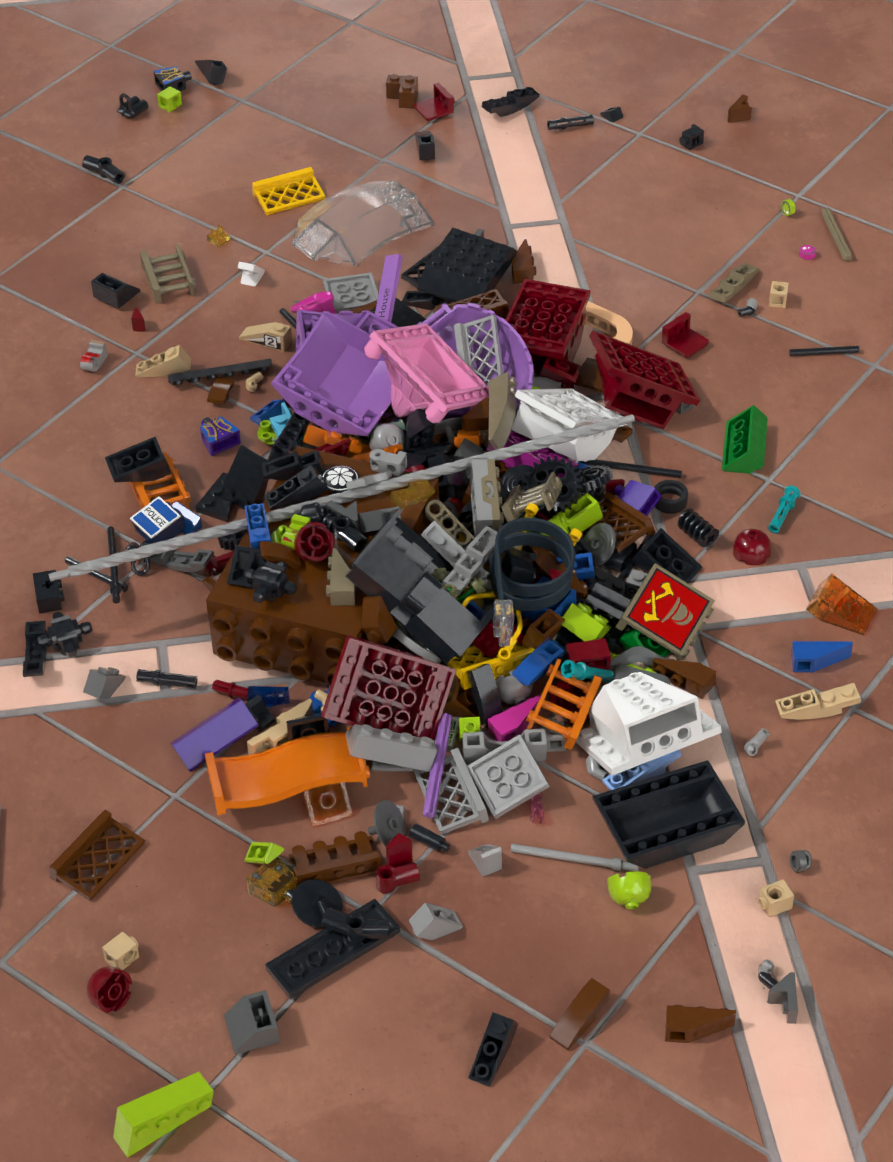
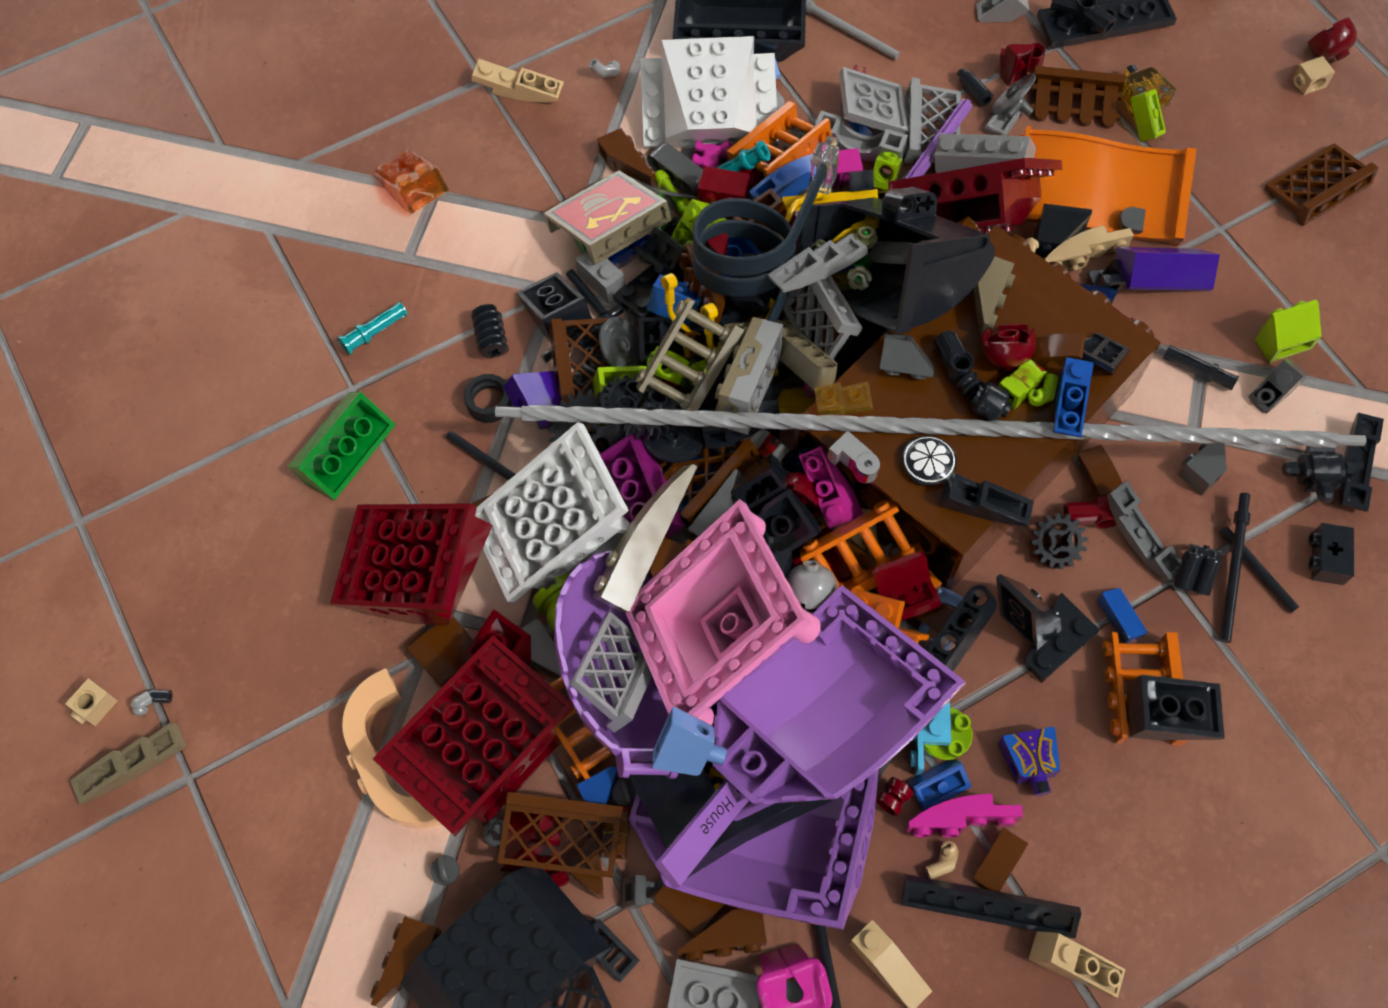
camera: 155 degrees left, 20 degrees up
(104, 716) = (1290, 331): none -> lime slope
(148, 614) = (1205, 468): none -> dark grey slope
(158, 521) = (1162, 607): piece -> none
(246, 403) = (953, 814): none -> dark pink slope
(252, 755) = (1132, 218): none -> dark grey tile
(270, 581) = (1081, 312): black piece -> none
(300, 488) = (993, 455): black slope -> none
(312, 899) = (1109, 57): black shield -> none
(350, 512) = (947, 383): dark grey slope -> none
(370, 479) = (894, 435): light grey tile -> none
(421, 313) = (686, 745): none -> medium blue torso
(487, 858) = (929, 45): light grey slope -> none
(611, 485) = (537, 444): dark red slope -> none
(681, 338) = (282, 669): dark red bracket -> none
(752, 547) = (445, 291): dark red cylinder -> none
(816, 655) = (481, 133): blue slope -> none
(827, 350) = (119, 571): black bar -> none

